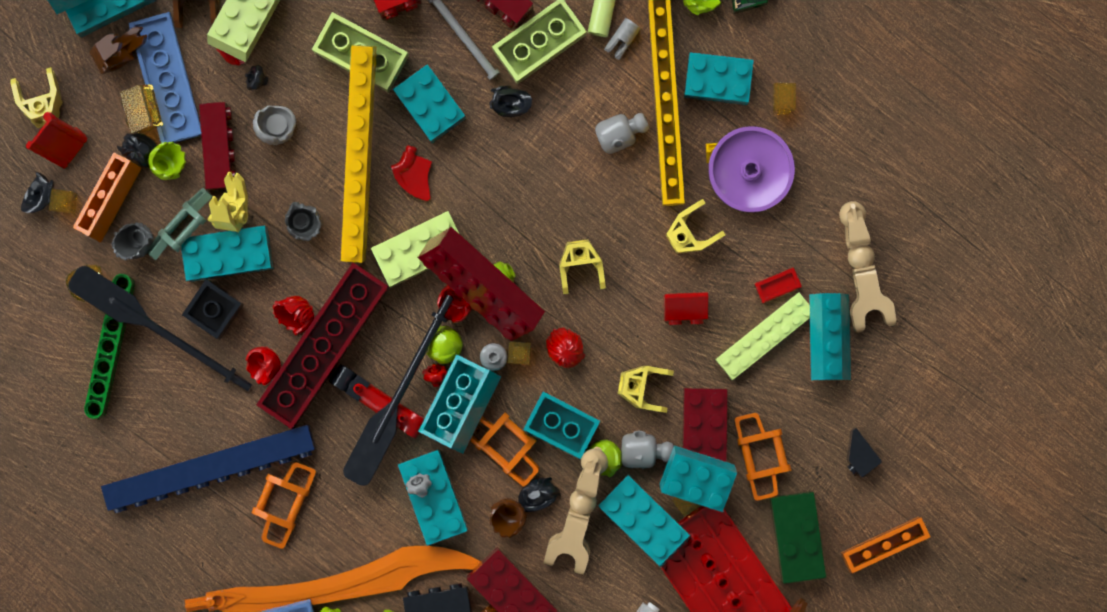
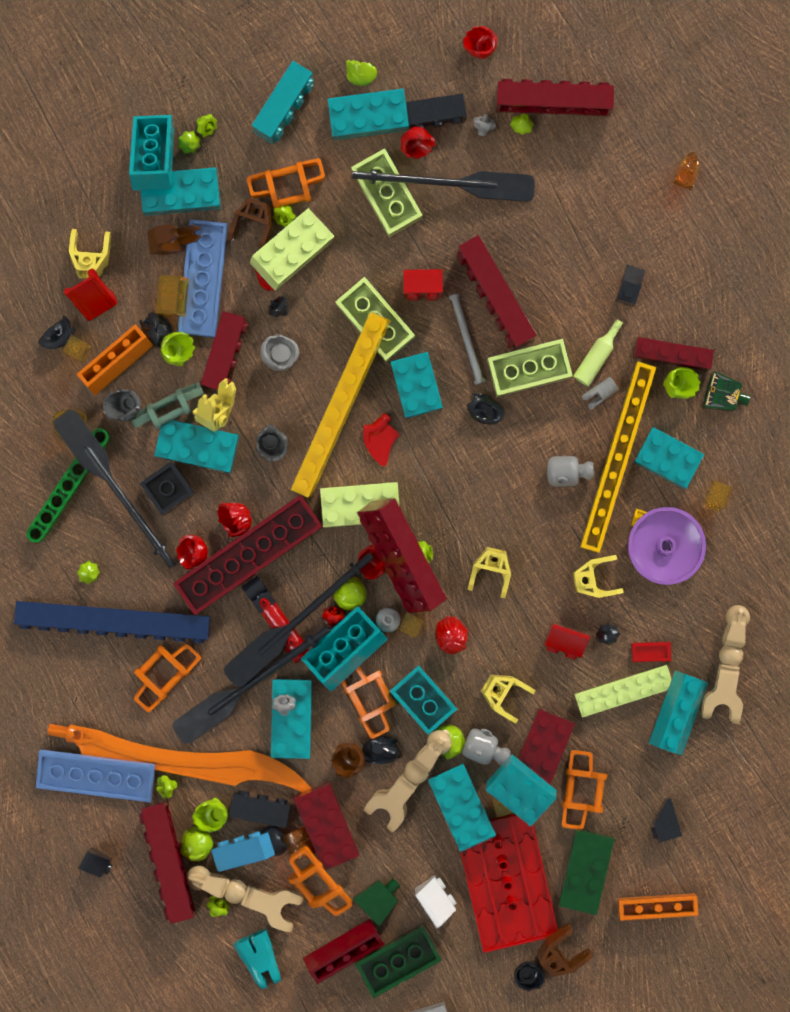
camera: 20 degrees right, 0 degrees up
(164, 428) = (88, 572): none -> lime piece
(356, 509) = (222, 703): none -> black piece
(726, 284) = (608, 634): none -> black piece

